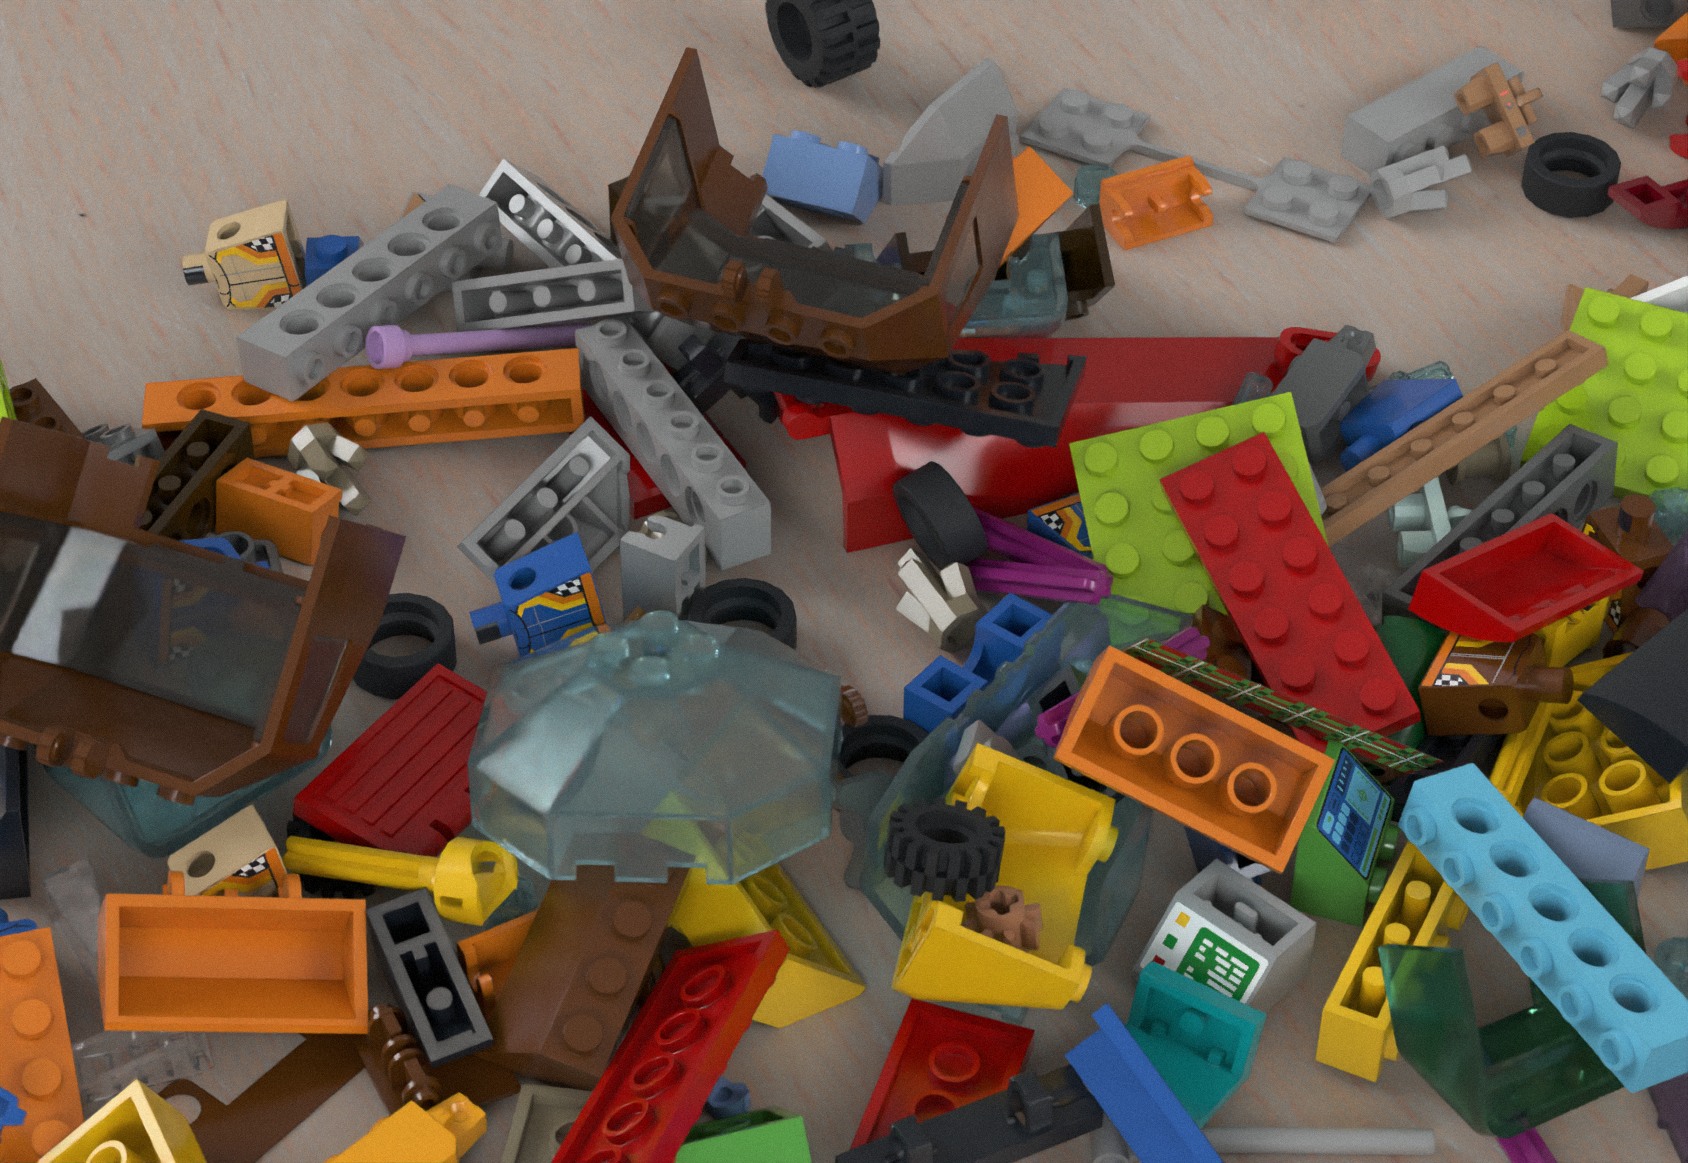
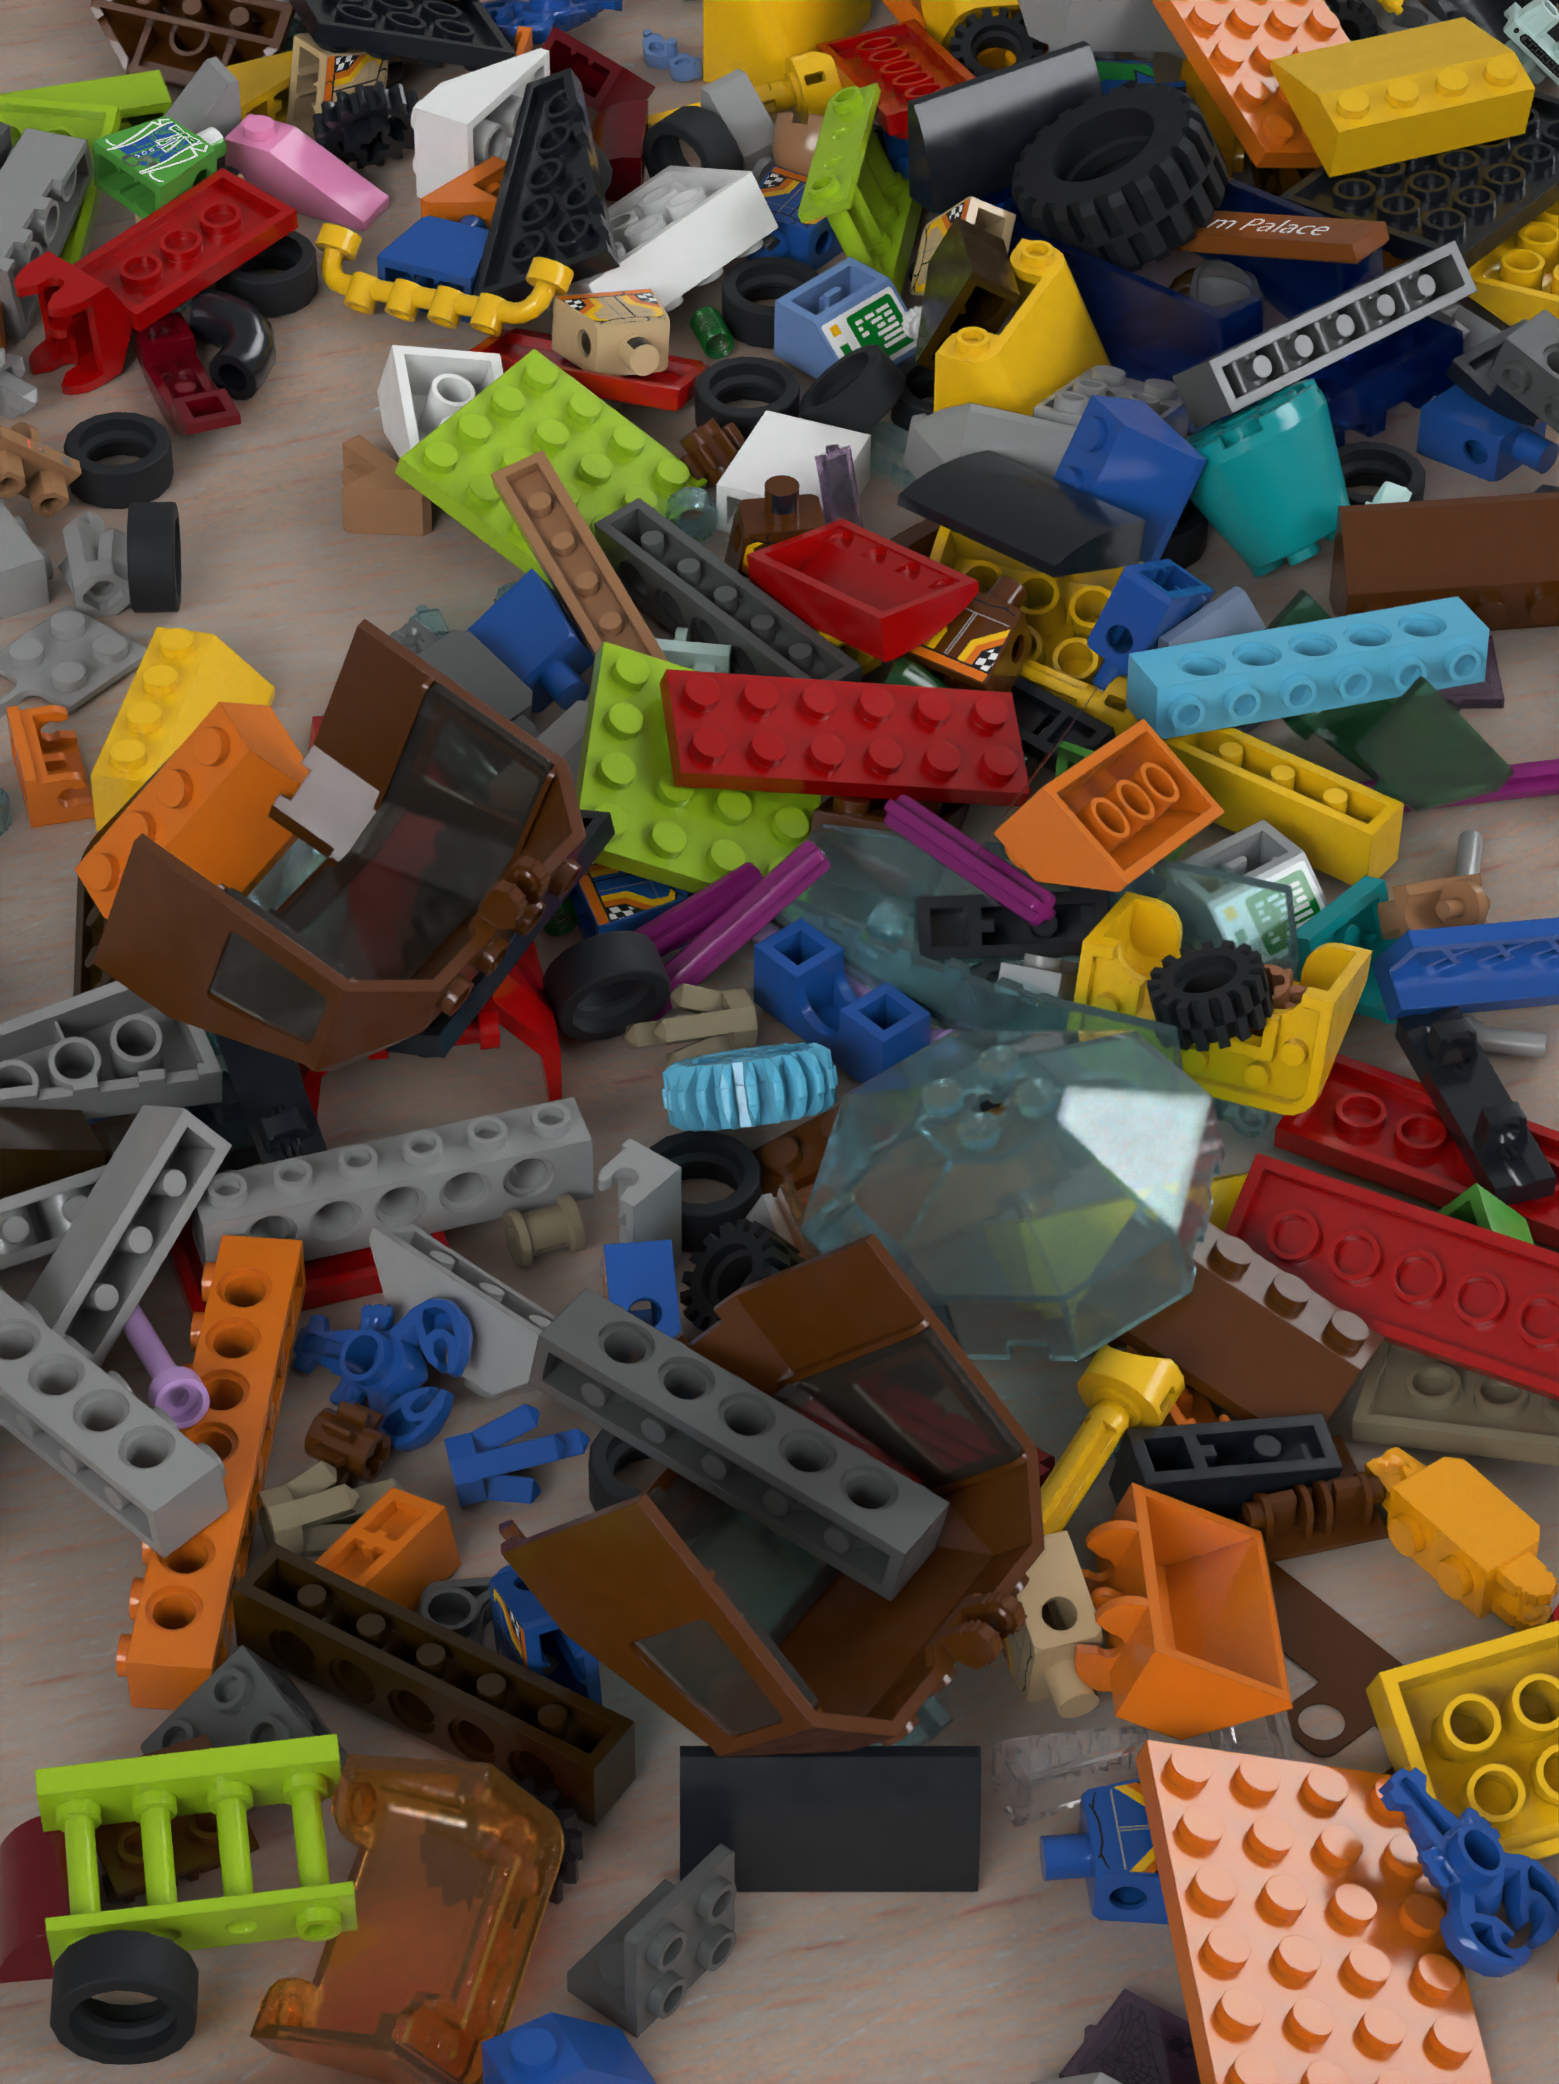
camera: 80 degrees left, 0 degrees up
(251, 610) = (738, 1443): none -> dark grey brick
(402, 471) = (349, 1442): none -> reddish brown gear
(414, 570) = (480, 1461): none -> blue rock
(487, 481) = (388, 1365): none -> blue animal
(841, 622) = (749, 1087): none -> medium azure gear
(1214, 261) = (167, 700): none -> yellow slope
(1244, 1086) = (1434, 905): none -> medium nougat hips
(1409, 174) = (154, 557): none -> black tyre
(1585, 781) = (1142, 608): none -> blue torso

